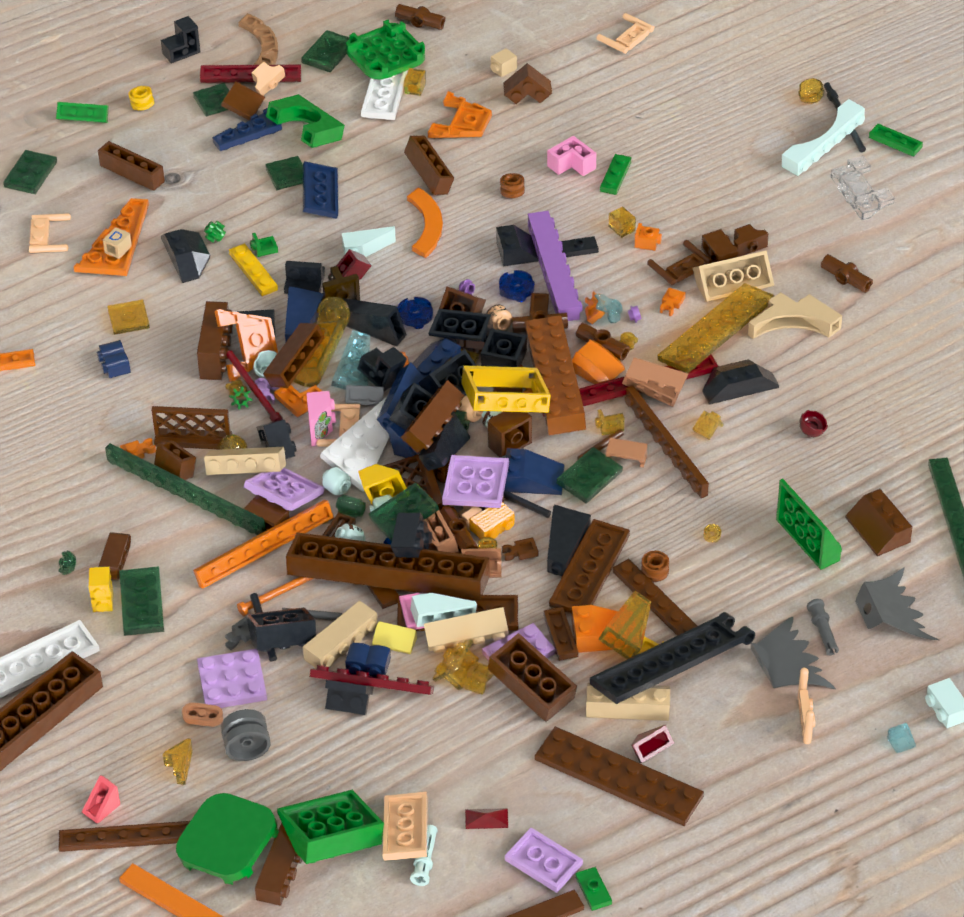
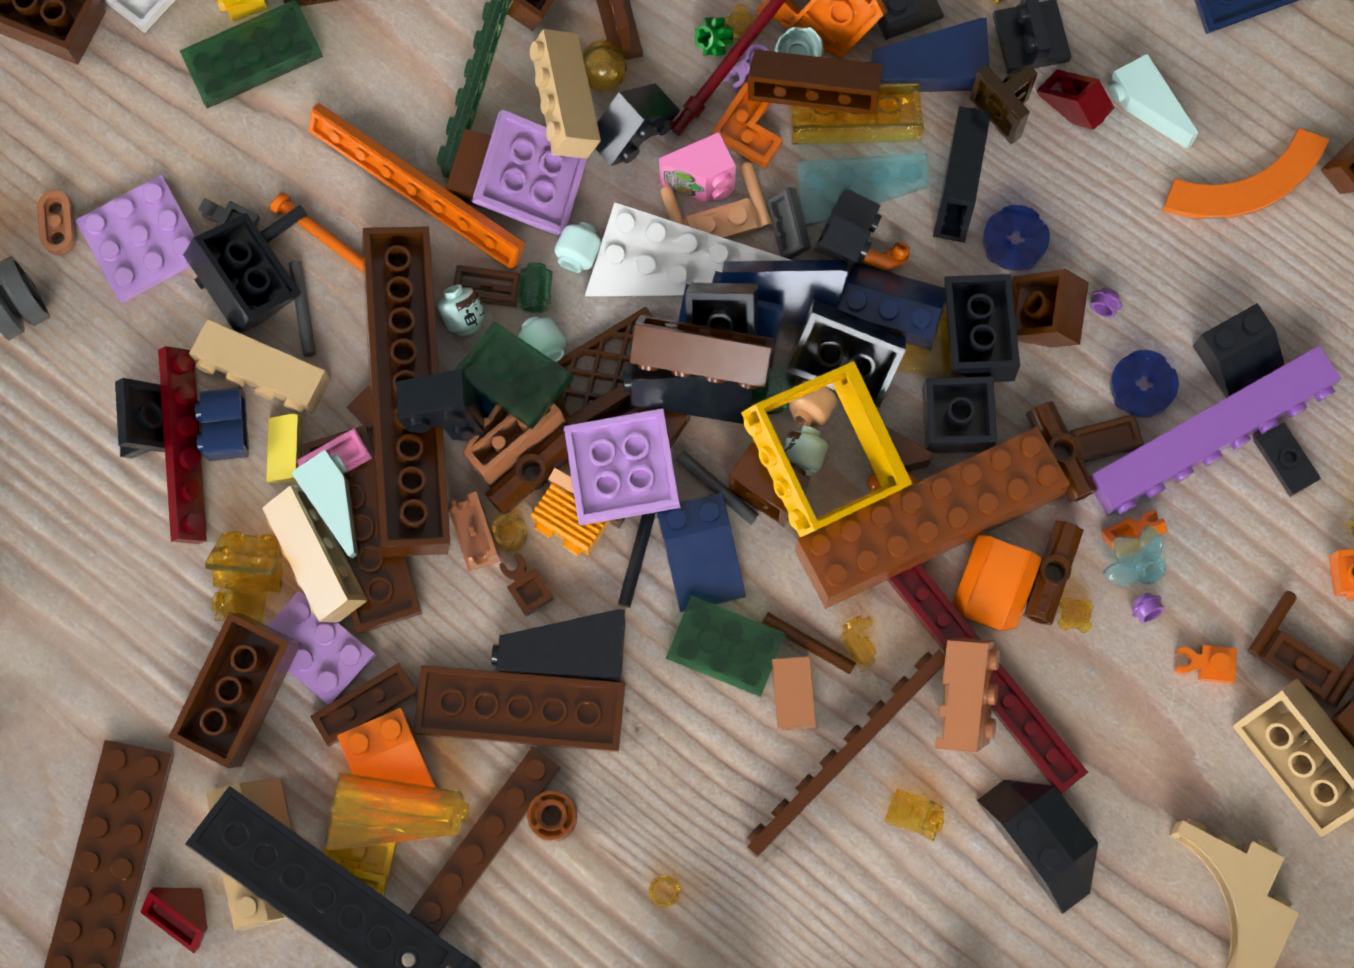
camera: 75 degrees right, 30 degrees up
(333, 309) = (948, 109): clear yellow tile -> none
(381, 481) = (574, 317): yellow slope -> none
(500, 316) = (1047, 379): light nougat head -> none
(715, 328) = (1155, 764): clear yellow plate -> none

